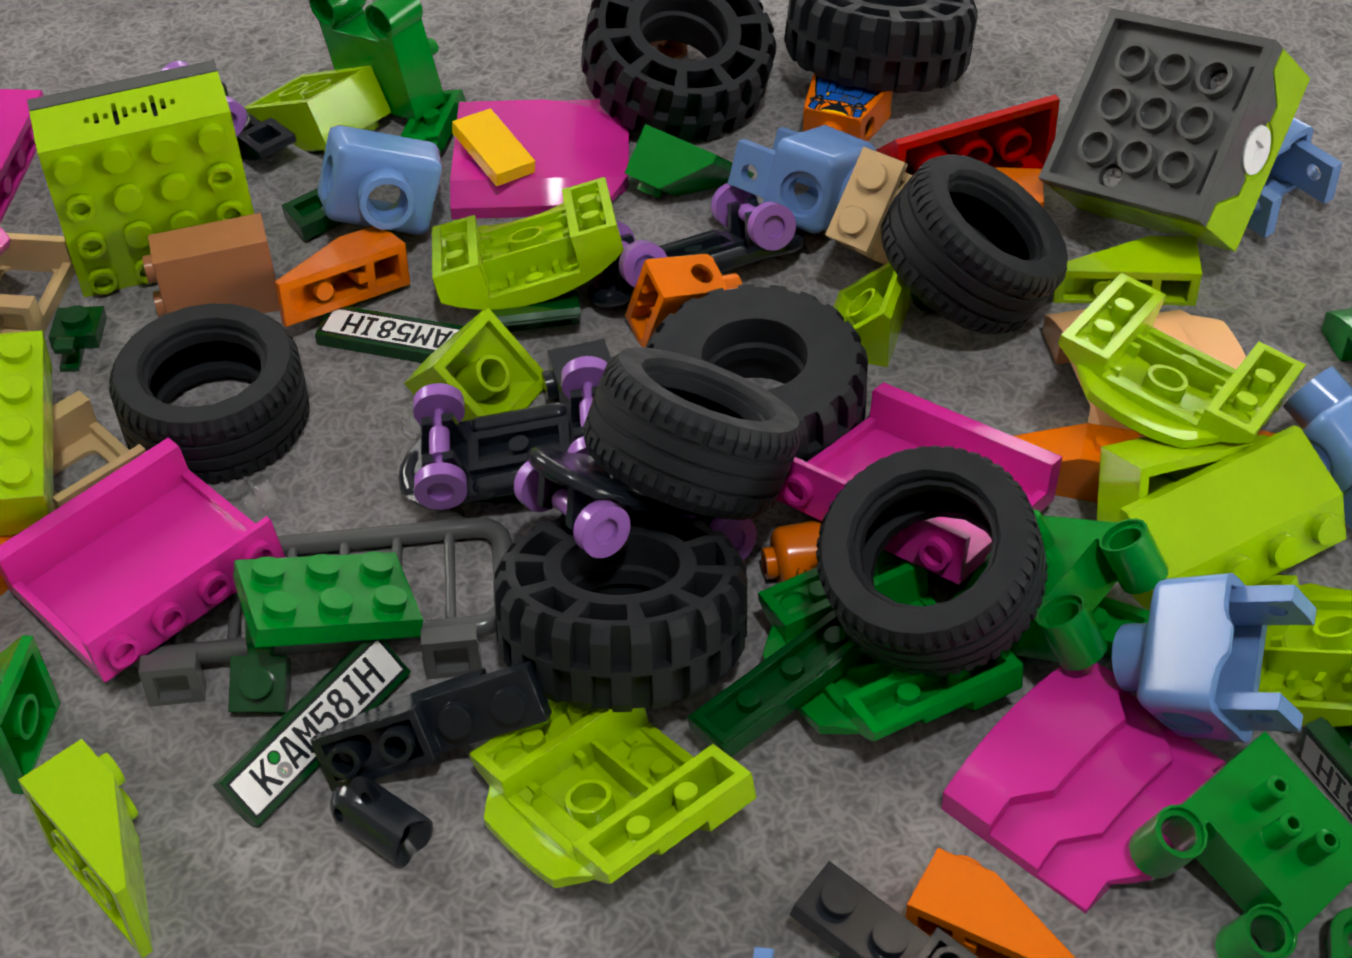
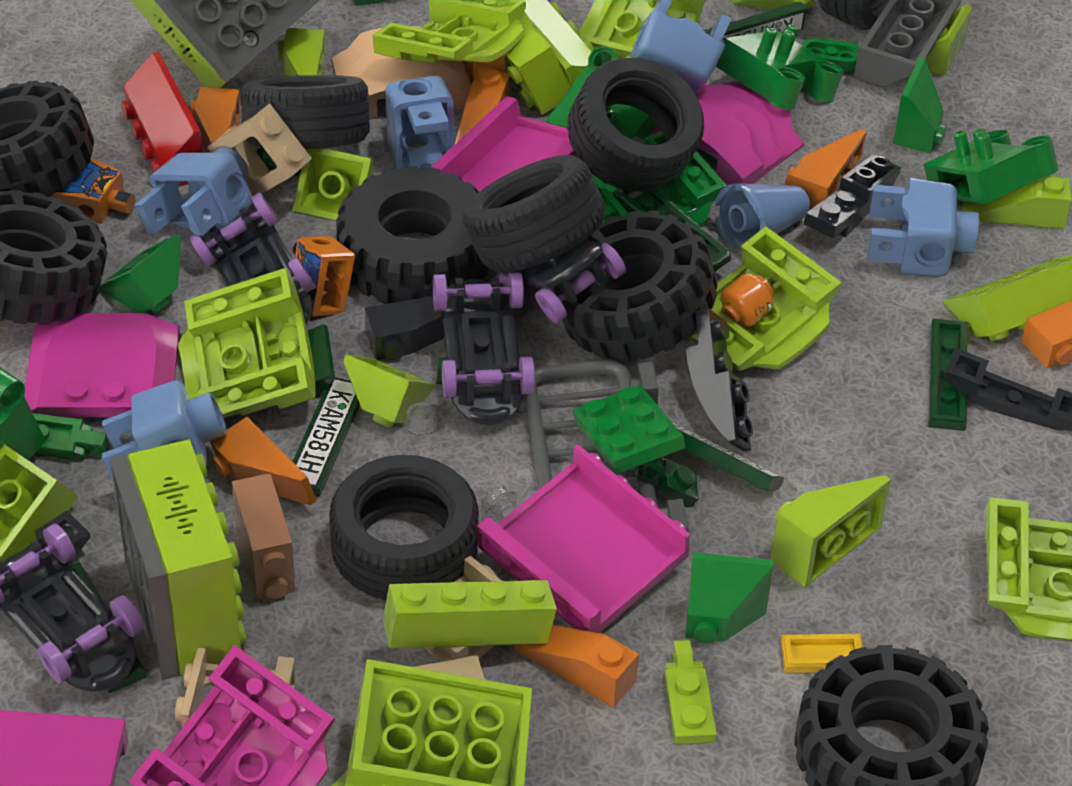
camera: 95 degrees left, 0 degrees up
(74, 331) = (300, 646): dark green plate -> none
(380, 820) = (780, 415): black piece -> none
(493, 147) = (125, 370): yellow tile -> none
(594, 755) = (747, 299): none -> orange head
(848, 809) = (751, 207): none -> medium blue cone
(993, 363) = (419, 112): none -> medium blue piece

